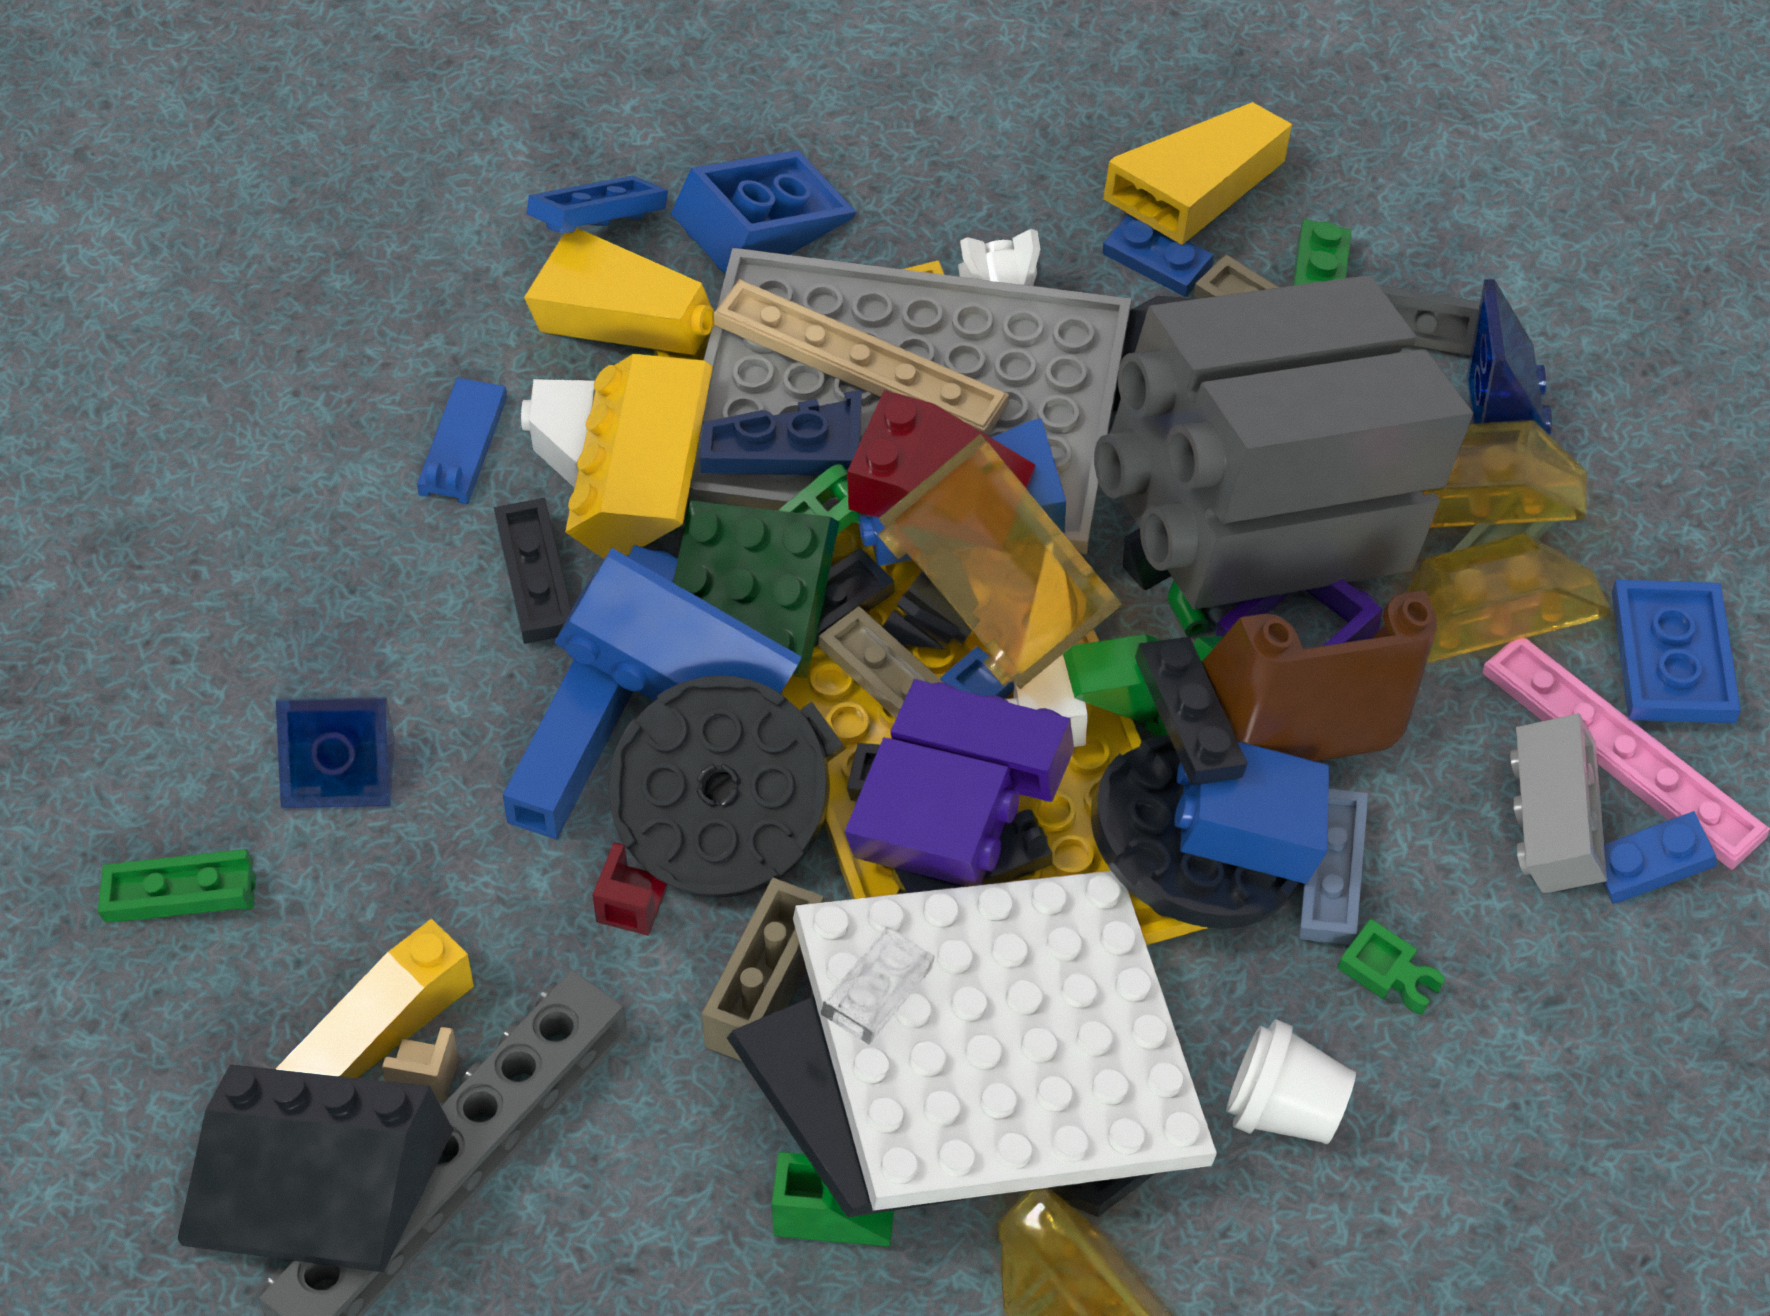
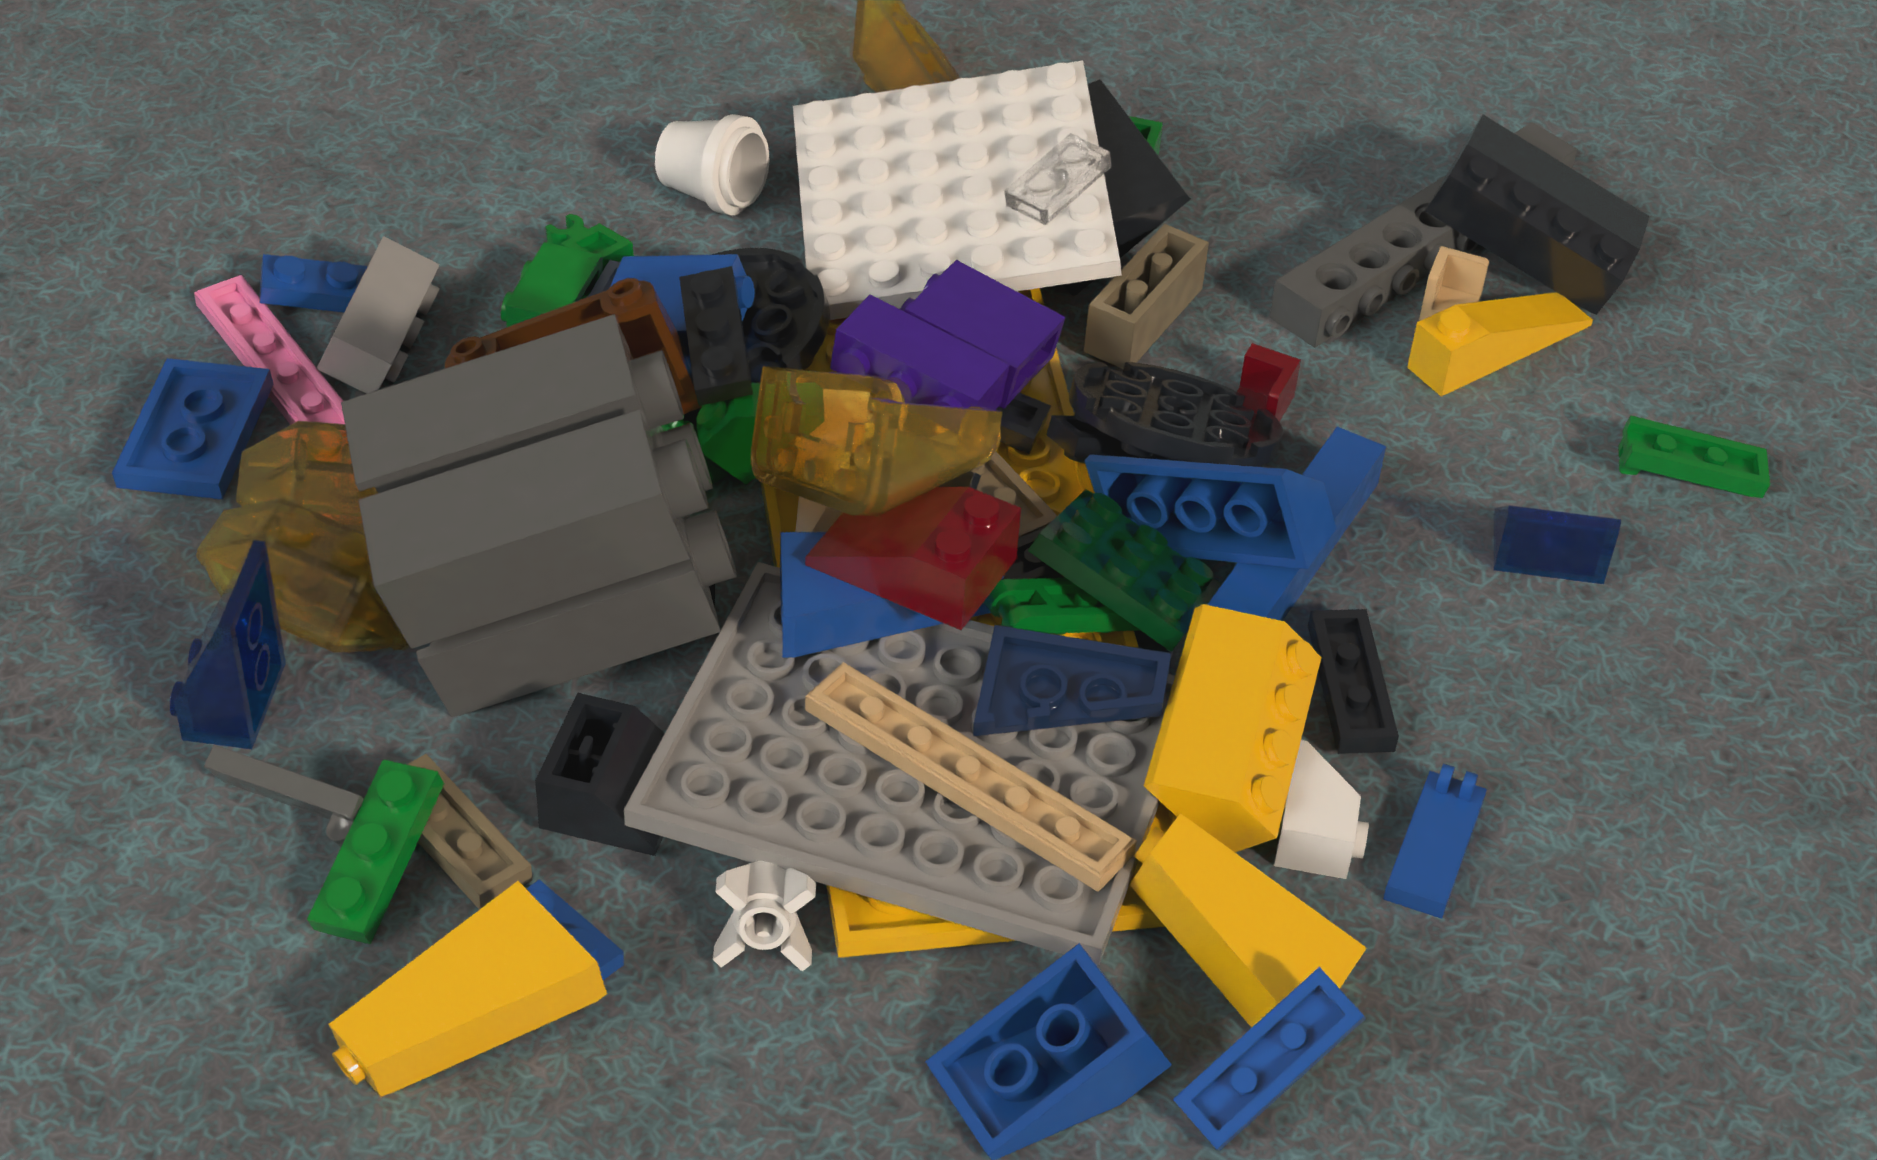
camera: 175 degrees left, 10 degrees down
(1397, 873) = (551, 281): none -> green brick

